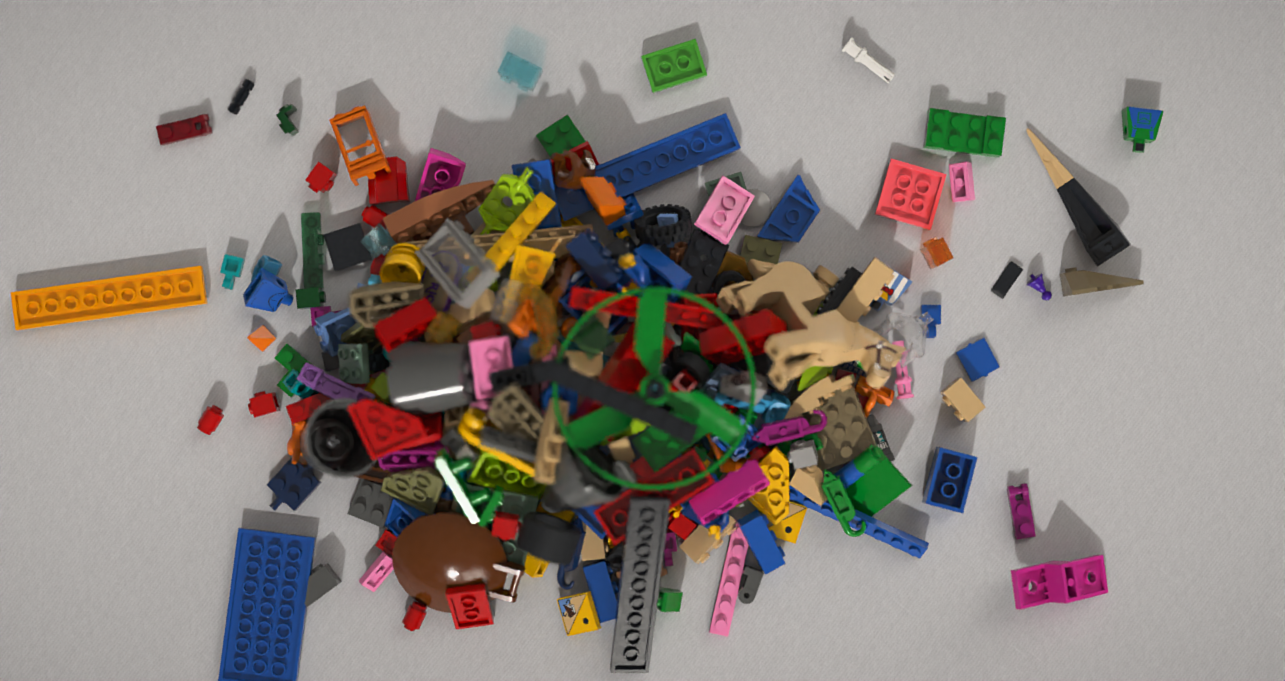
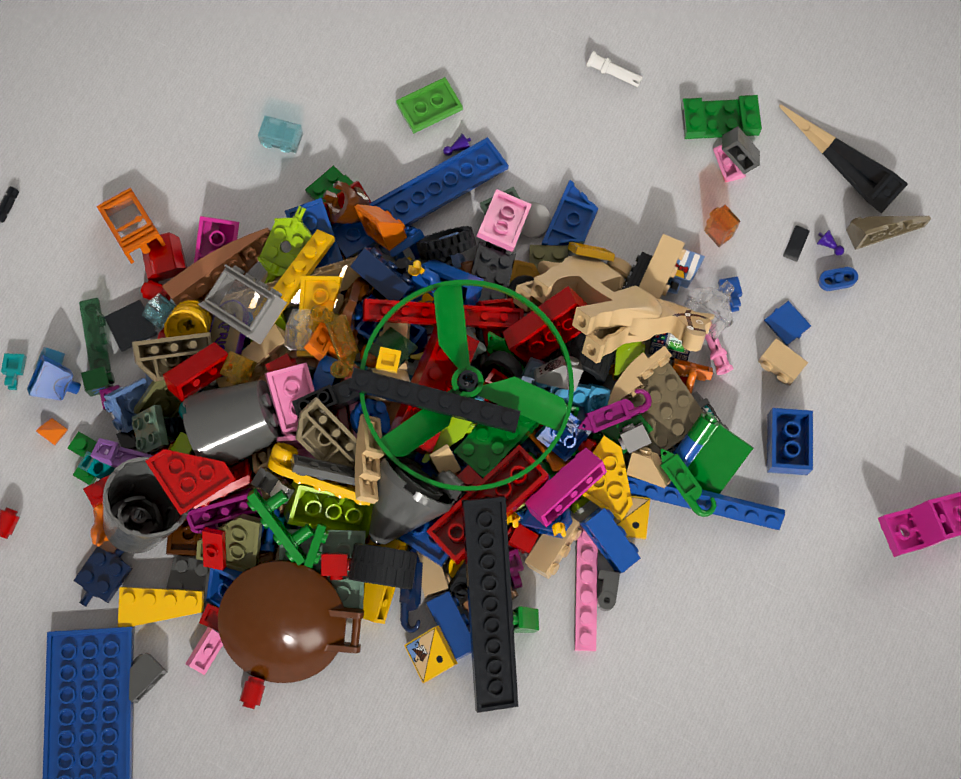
camera: 15 degrees left, 15 degrees down
(263, 404) = (61, 496): red brick -> none
(286, 124) = (51, 211): dark green bracket -> none
(321, 178) = (95, 264): red brick -> none
(336, 521) = (151, 605): none -> yellow wing
(398, 488) = (214, 548): none -> red plate
(469, 606) = (310, 666): red tile -> none
(585, 357) = (388, 360): none -> yellow plate
(697, 114) = (460, 144): none -> dark purple piece
(802, 257) = (591, 251): none -> yellow tile
(910, 194) = (683, 180): coral plate -> none
(973, 177) = (740, 150): none -> dark grey brick
(1021, 512) = (870, 463): magenta plate -> none
(1036, 325) = (837, 280): none -> blue plate
(1140, 126) = (886, 82): torso -> none

